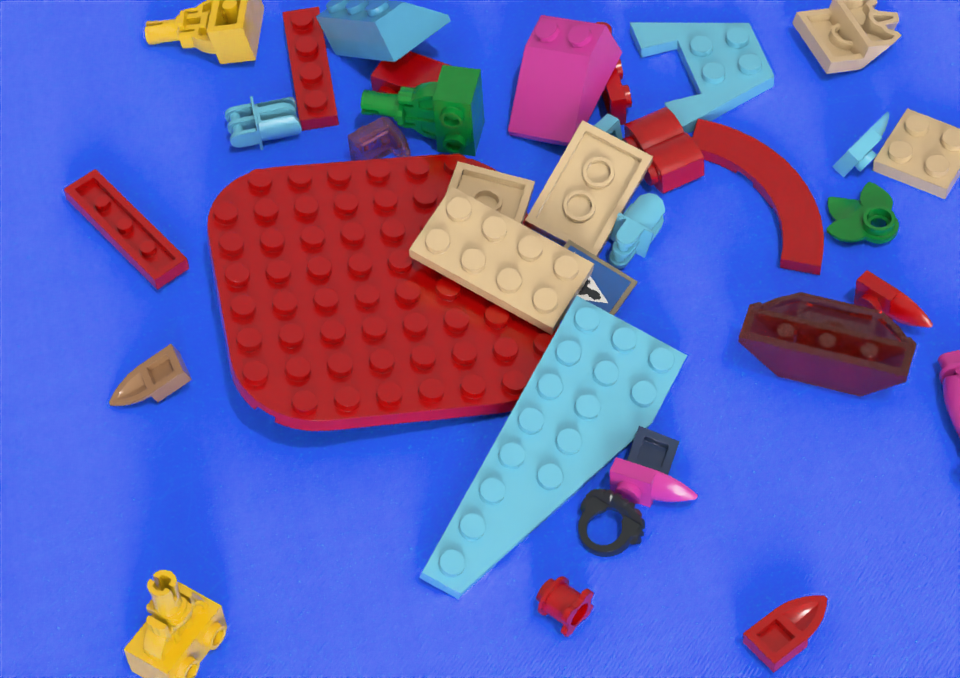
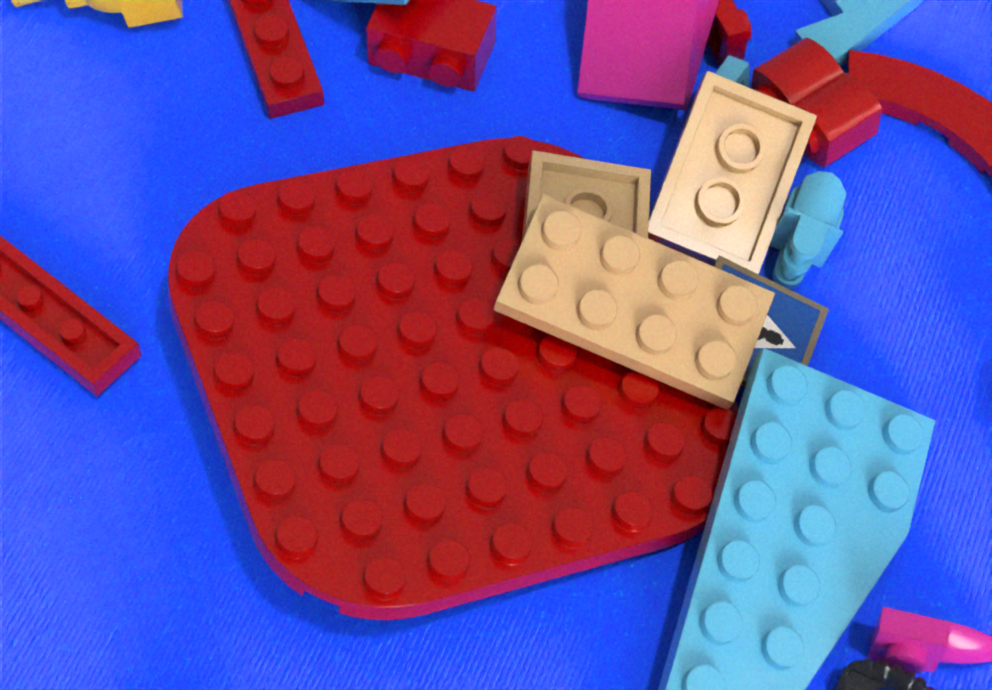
camera: 15 degrees left, 5 degrees up
(153, 378) = (117, 550): medium nougat plate -> none
(262, 121) = (212, 112): medium azure arm -> none
(378, 141) = (393, 124): plate -> none
(440, 110) = (474, 71): green brick -> none
(652, 450) = (923, 584): dark blue plate -> none

